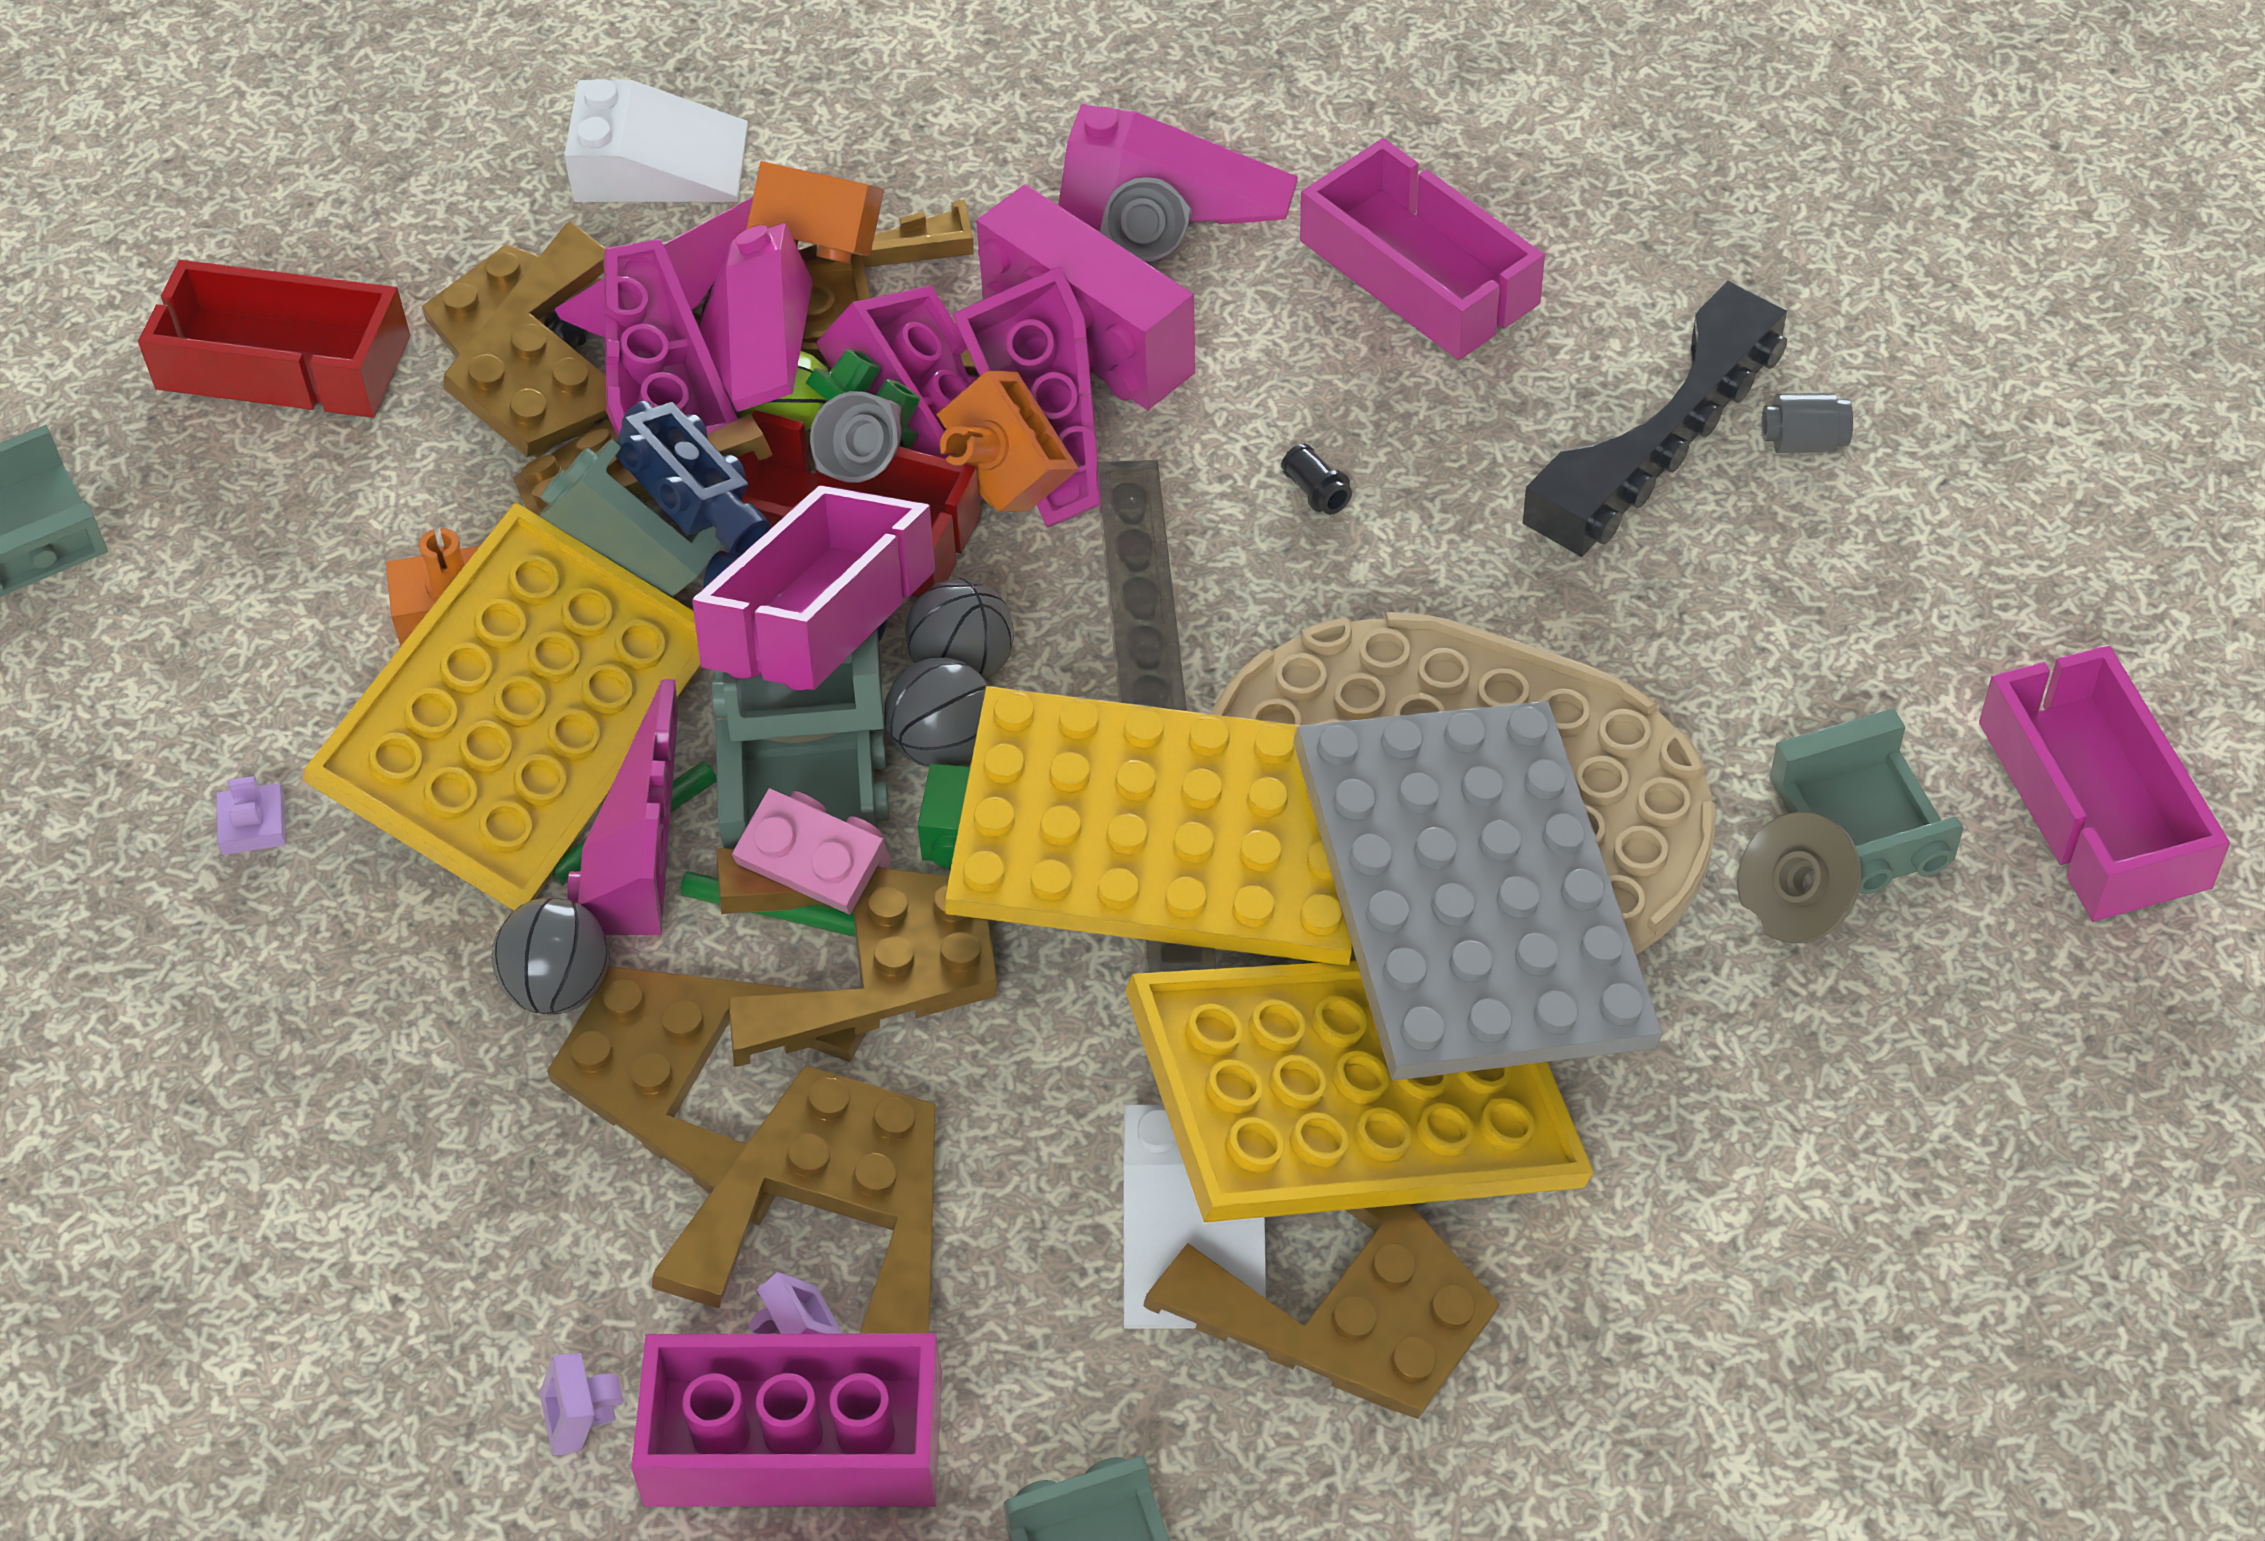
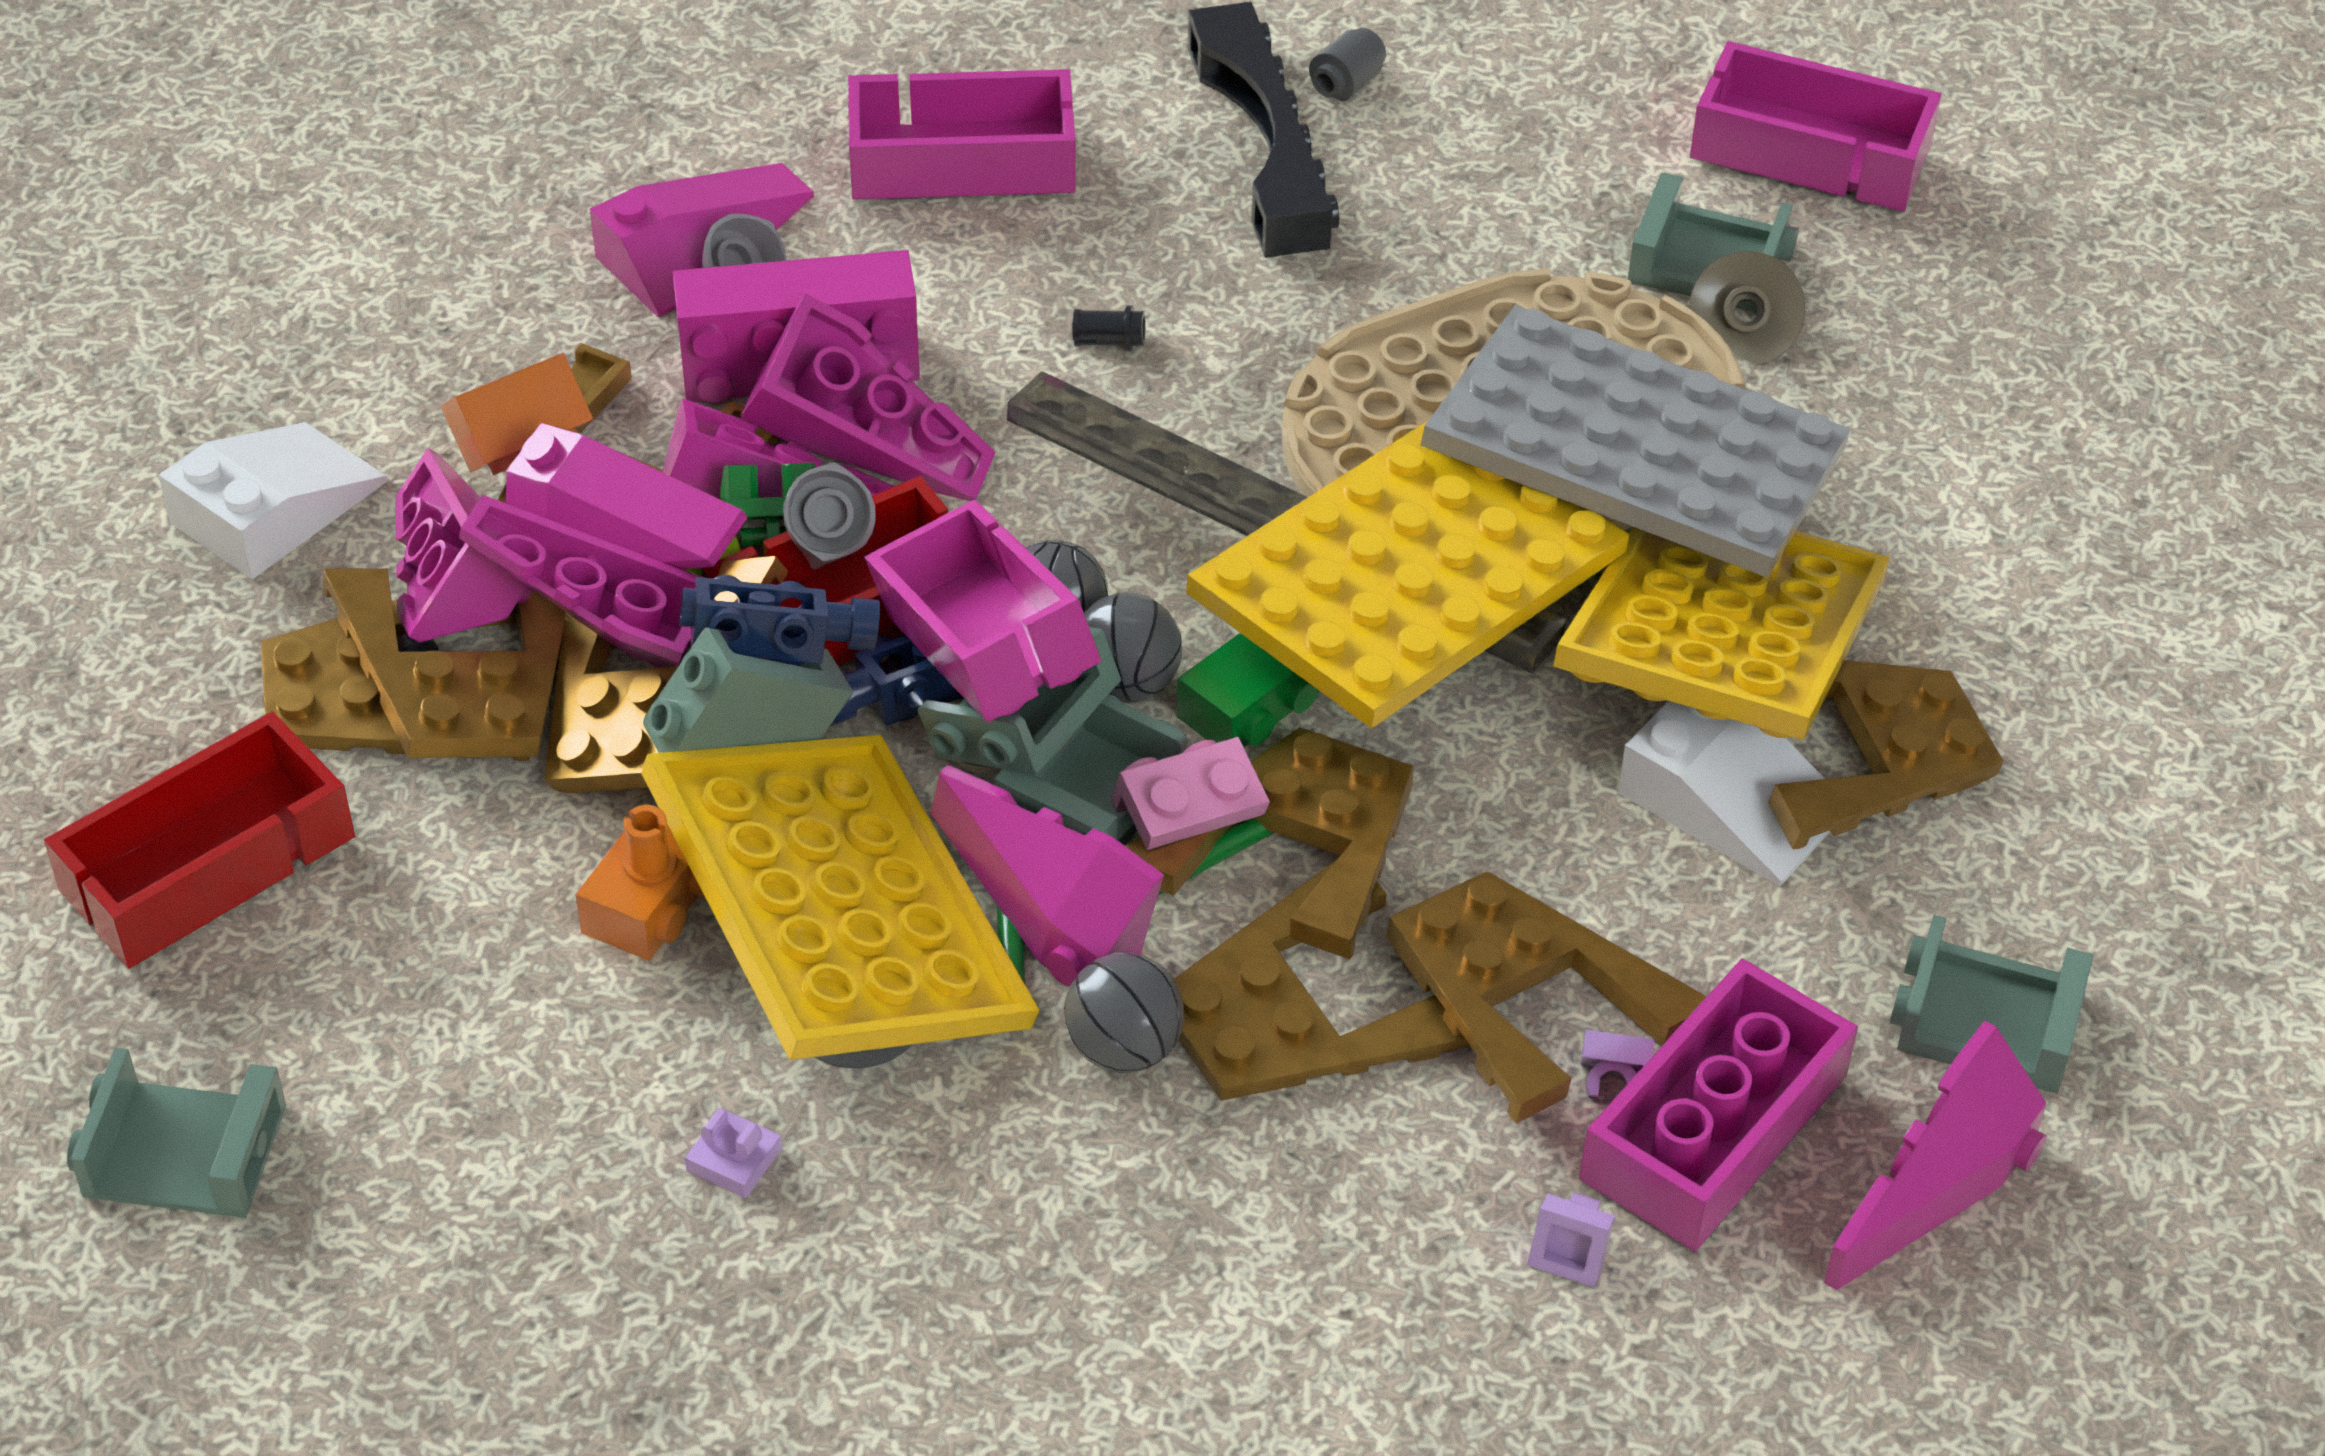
camera: 55 degrees left, 5 degrees down
(1007, 439) = (903, 444): orange brick -> none

